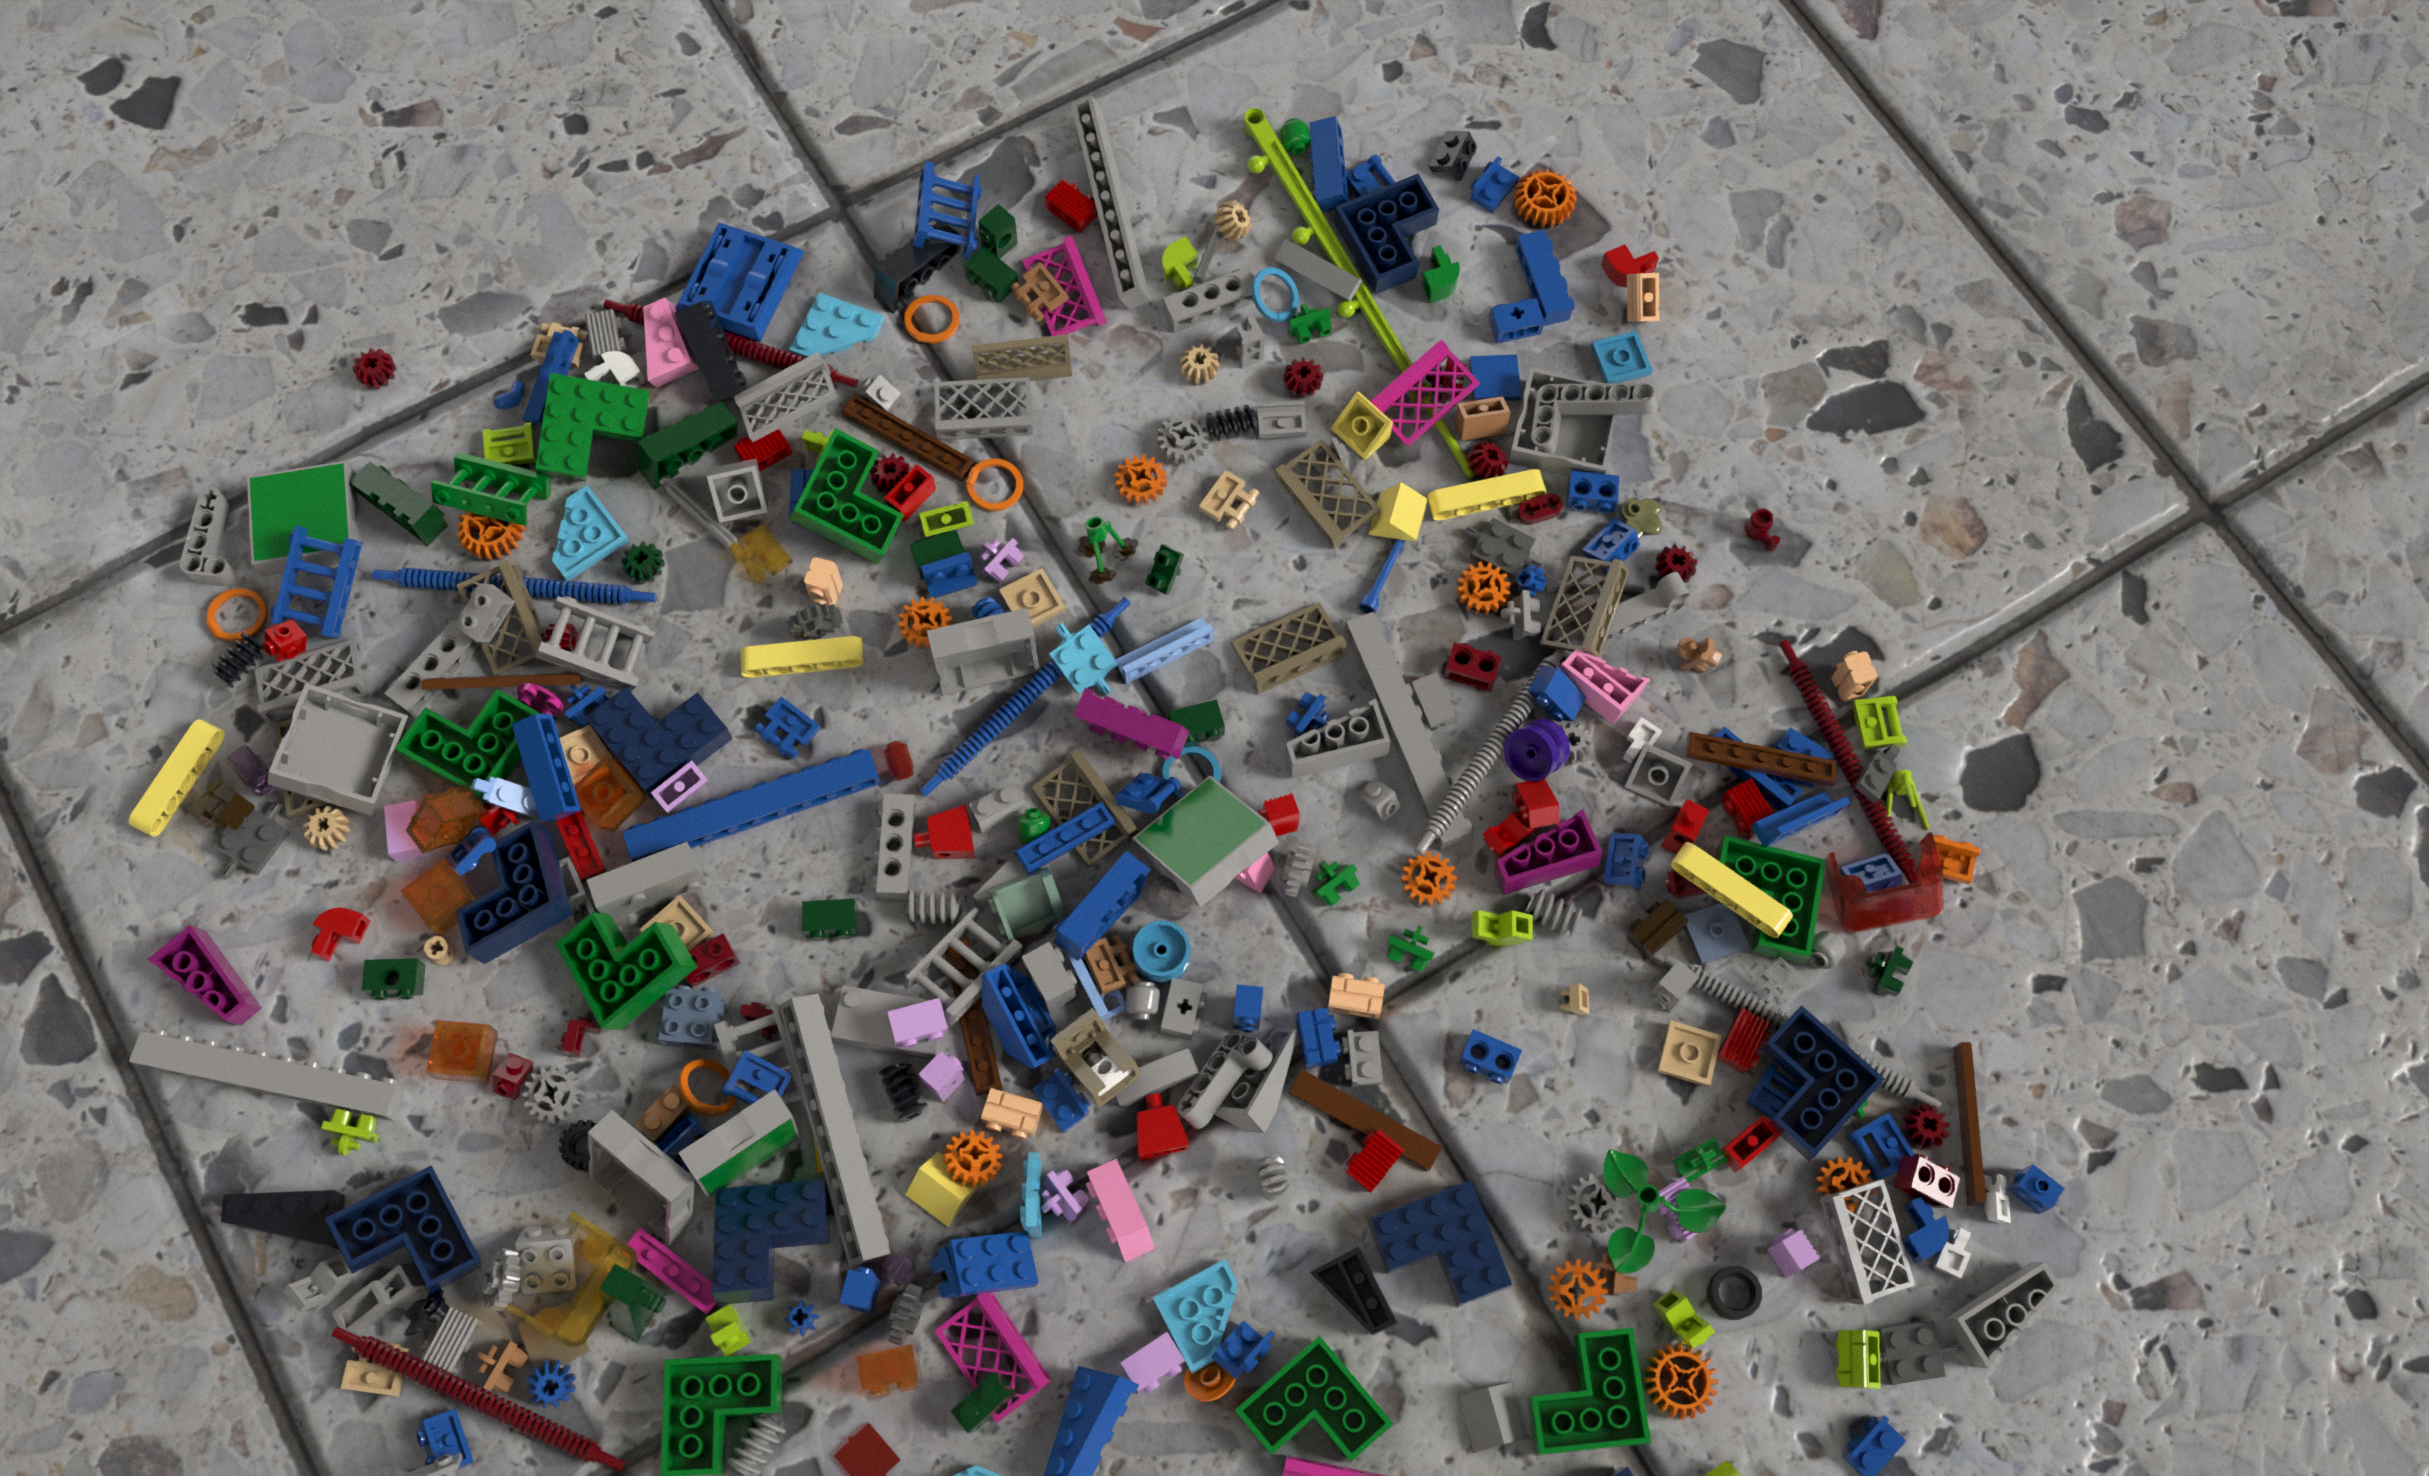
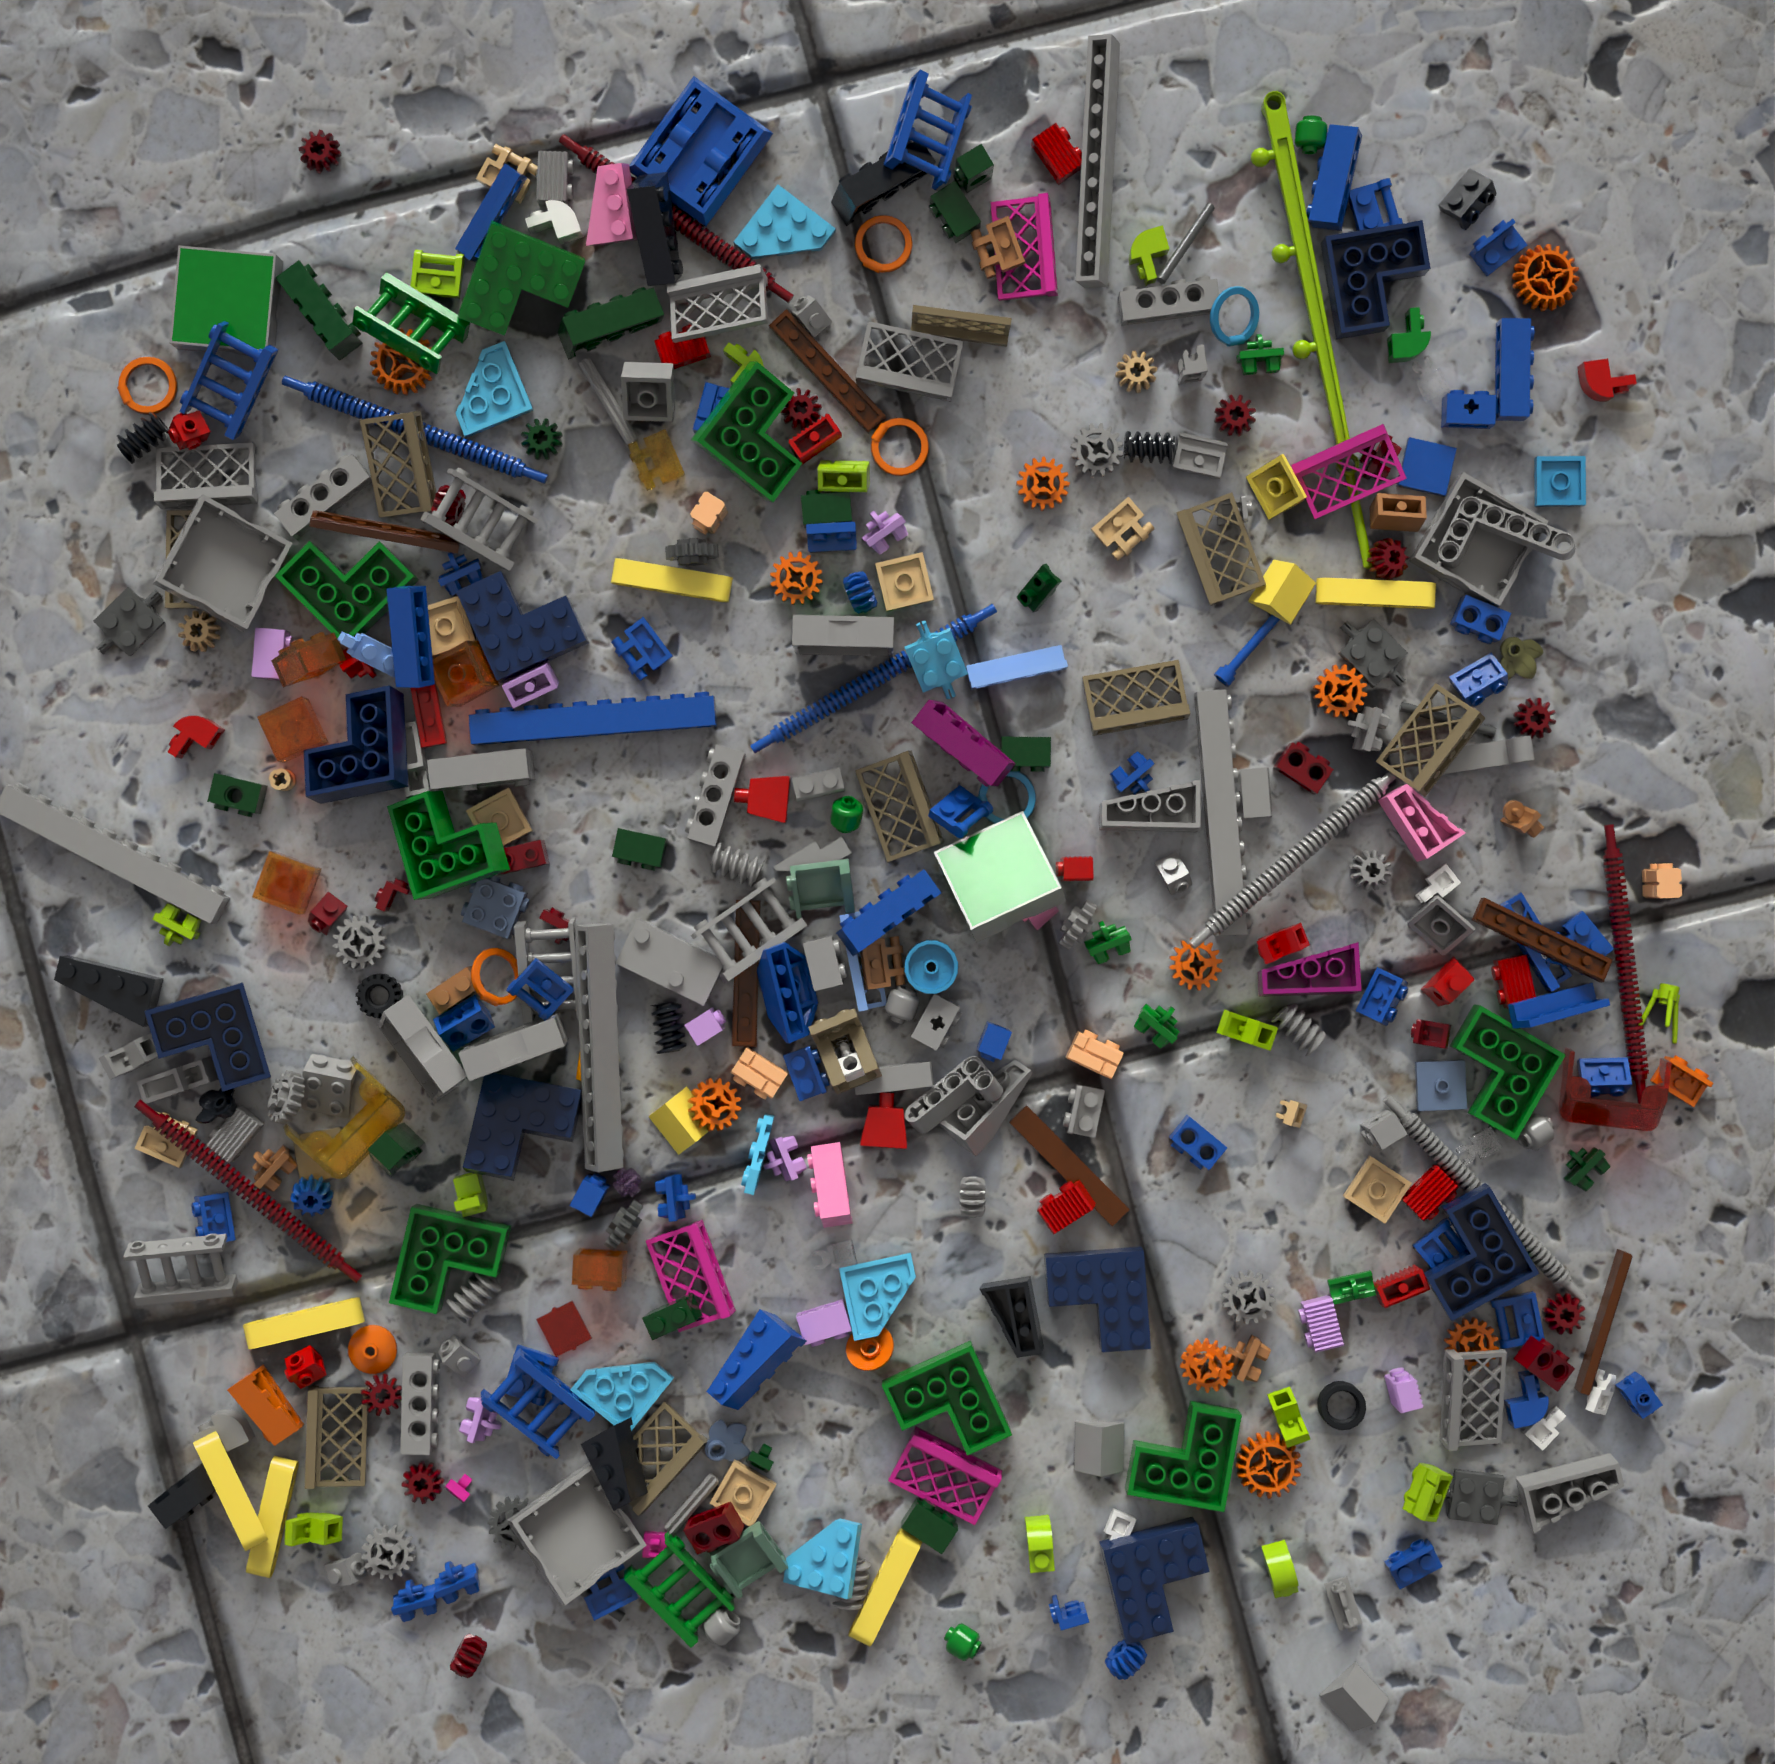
camera: 15 degrees right, 20 degrees up
(176, 778) = (70, 541): light yellow beam -> none
(206, 973) = (72, 747): magenta wedge -> none
(211, 508) = (135, 295): light grey beam -> none
(224, 806) = (110, 586): dark brown brick -> none
(251, 770) = (140, 559): brick -> none
(470, 849) = (319, 693): blue plate -> none
(484, 612) = (381, 459): light grey brick -> none
(510, 398) = (448, 221): blue arm -> none
(539, 699) = (417, 558): dark pink dish -> none
(673, 1271) = (433, 1127): dark pink plate -> none
(807, 1323) = (540, 1196): blue gear -> none
(898, 760) = (738, 711): clear red brick -> none
(917, 1023) = (694, 977): lavender brick -> none
(992, 1263) = (708, 1202): blue plate -> none
(1064, 838) = (872, 834): blue tile -> none
(1095, 541) = (977, 539): plant -> none
(1232, 220) = (1216, 218): tan gear -> none
(1241, 1348) = (902, 1335): blue bracket -> none
(1317, 1038) = (1048, 1082): blue brick -> none
(1318, 270) = (1286, 299): light grey tile -> none
(1531, 579) = (1388, 696): blue gear -> none
(1536, 750) = (1335, 873): dark purple wheel -> none
(1536, 803) = (1318, 923): red brick -> none
(1538, 506) = (1423, 615): dark red beam -> none
(1556, 694) = (1372, 822): blue brick -> none
(1628, 1173) = (1281, 1283): green plant -> none
(1642, 297) = (1604, 424): light nougat brick -> none
(1656, 929) = (1388, 1068): dark brown brick -> none
(1731, 890) = (1466, 1061): light yellow beam -> none
(1759, 527) = (1629, 701): dark red piece -> none
(1872, 725) = (1661, 930): lime plate -> none
(1878, 773) = (1648, 981): dark grey hinge -> none

